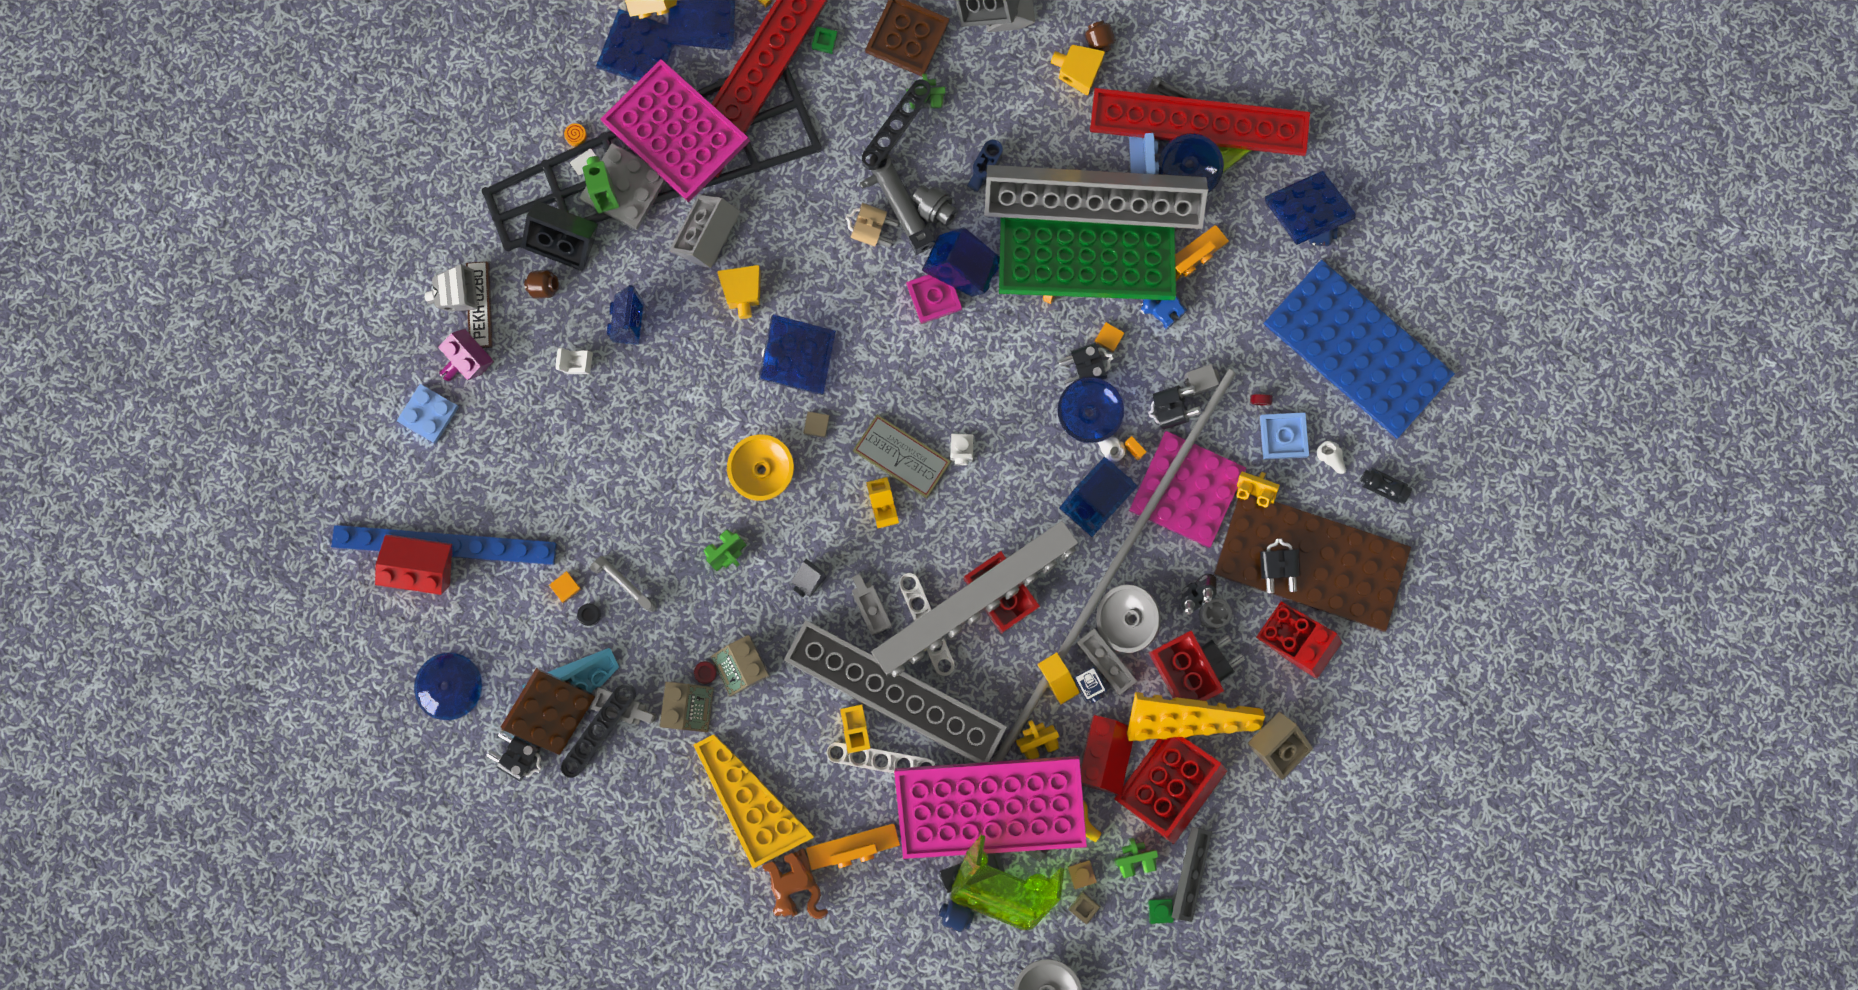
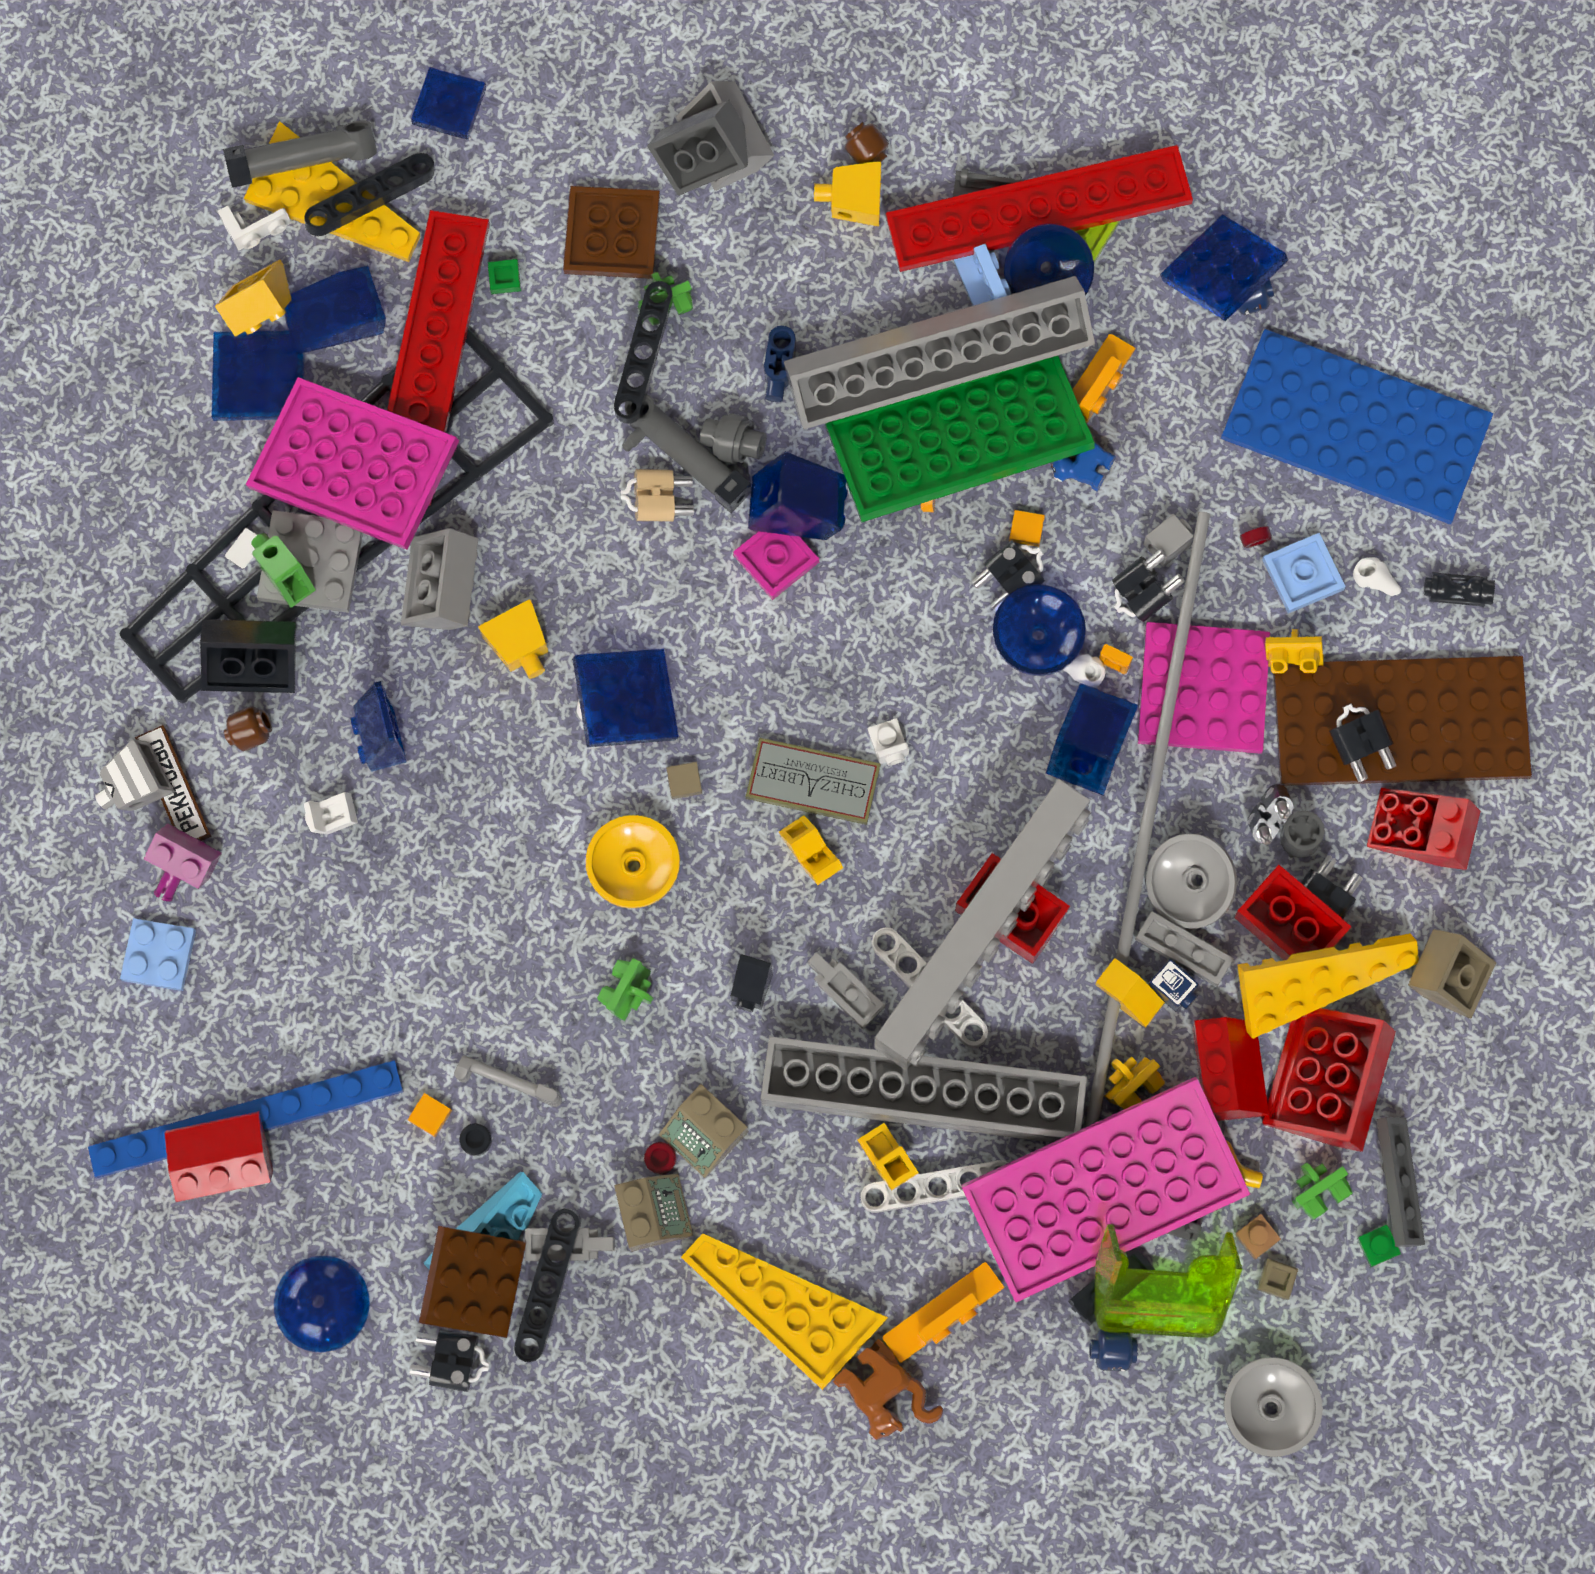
camera: 15 degrees left, 5 degrees down
(575, 134) = (217, 517): light orange tile -> none

